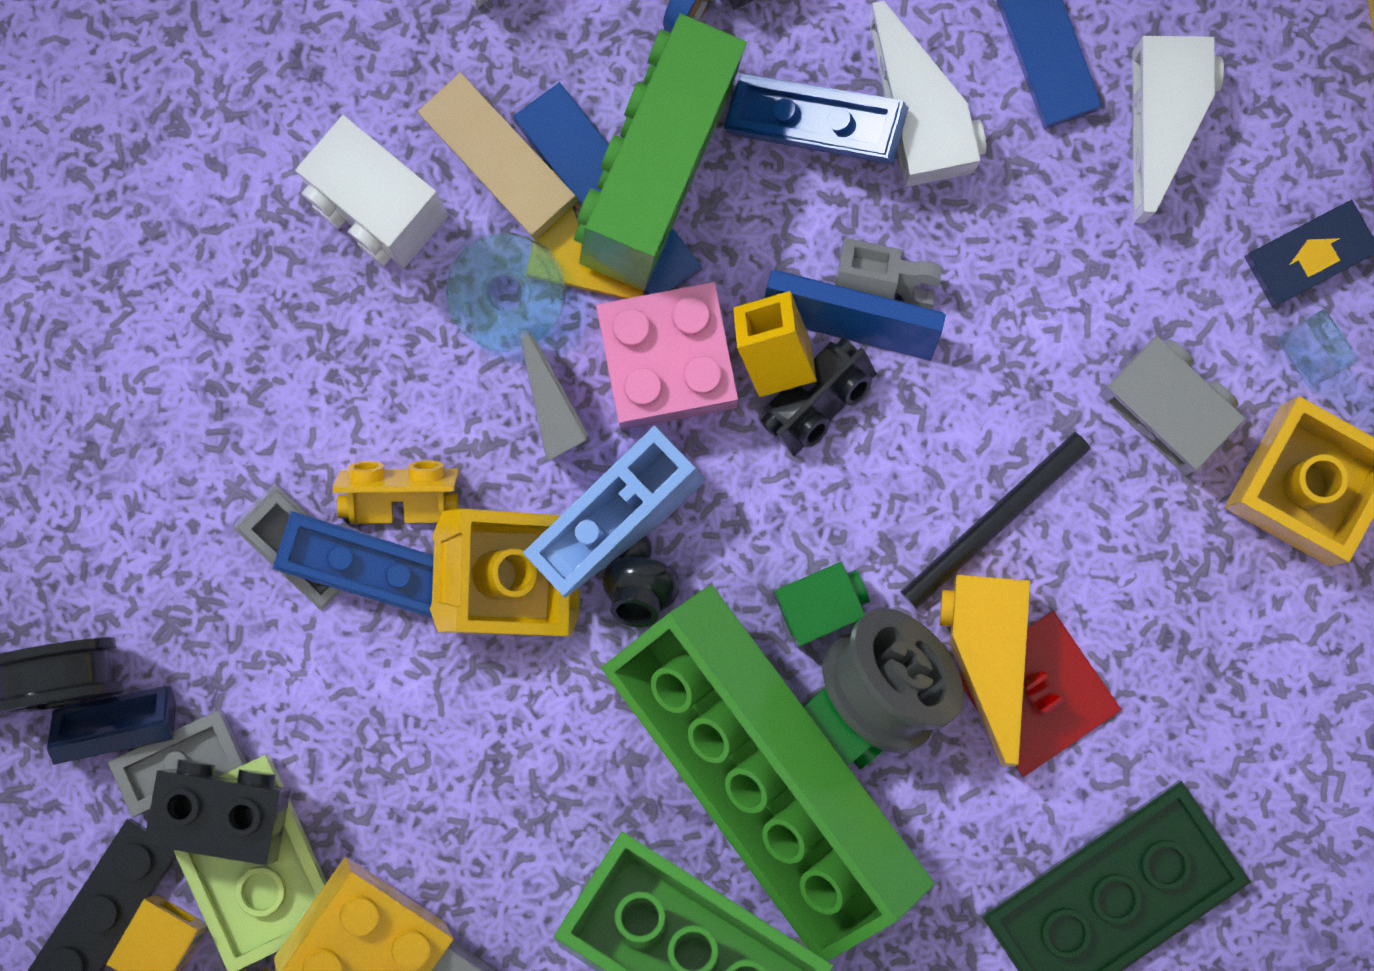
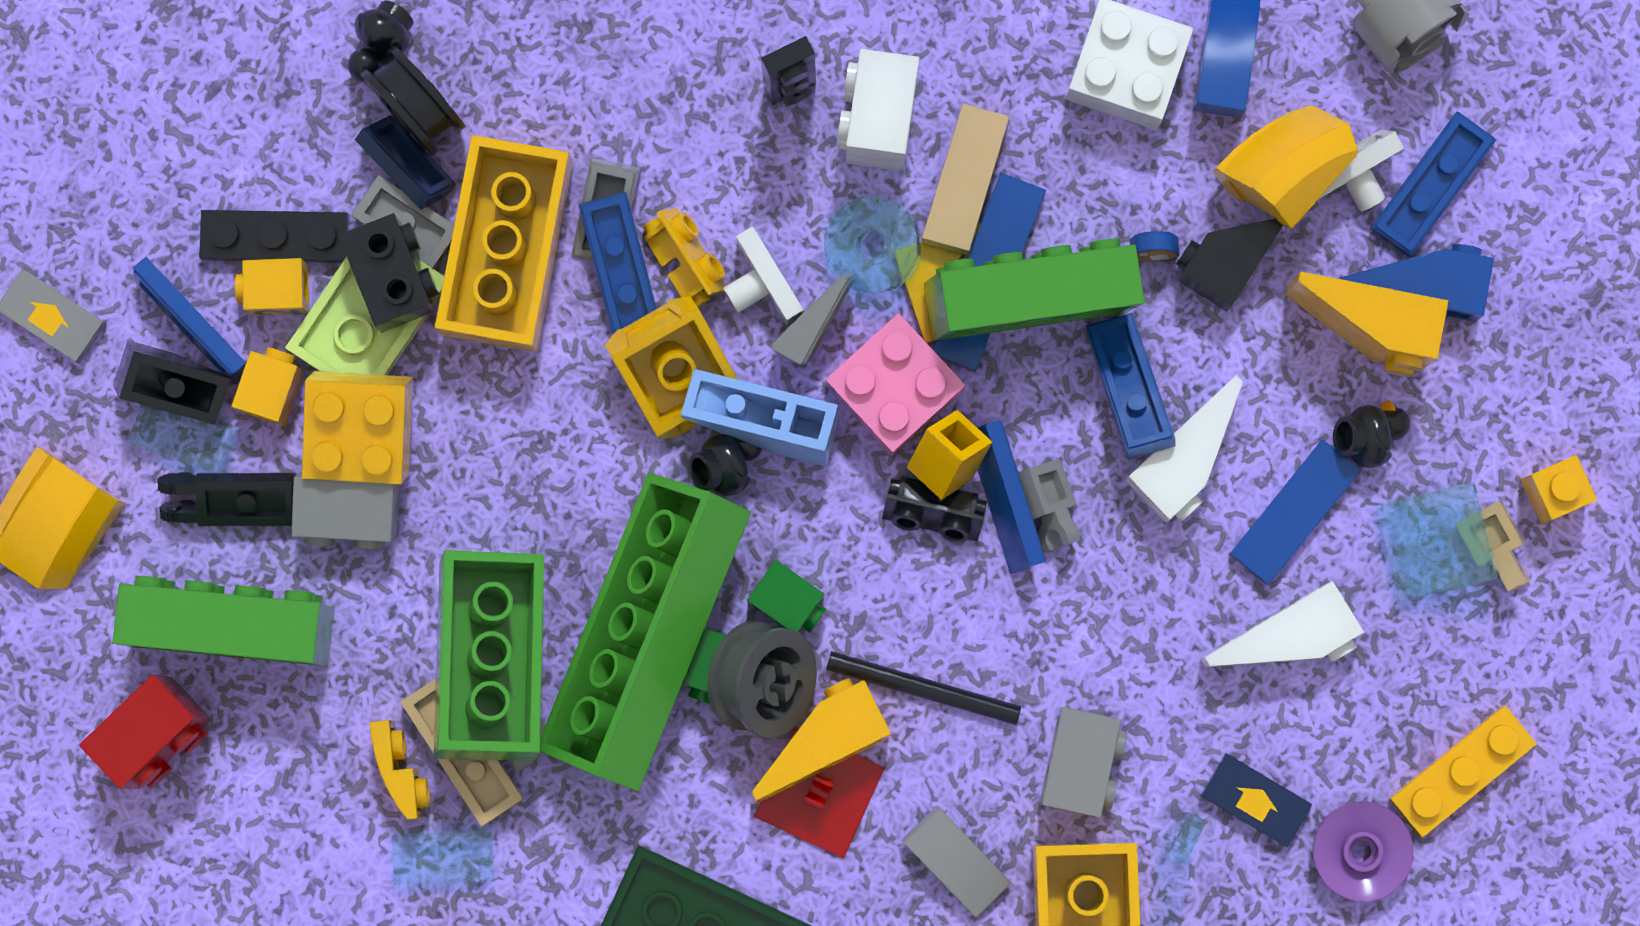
camera: 60 degrees right, 0 degrees up
(264, 672) = (504, 243): none -> yellow brick
(272, 260) = (789, 72): none -> black plate
(472, 427) = (762, 280): none -> white tile
(1196, 595) = (956, 861): none -> light grey slope

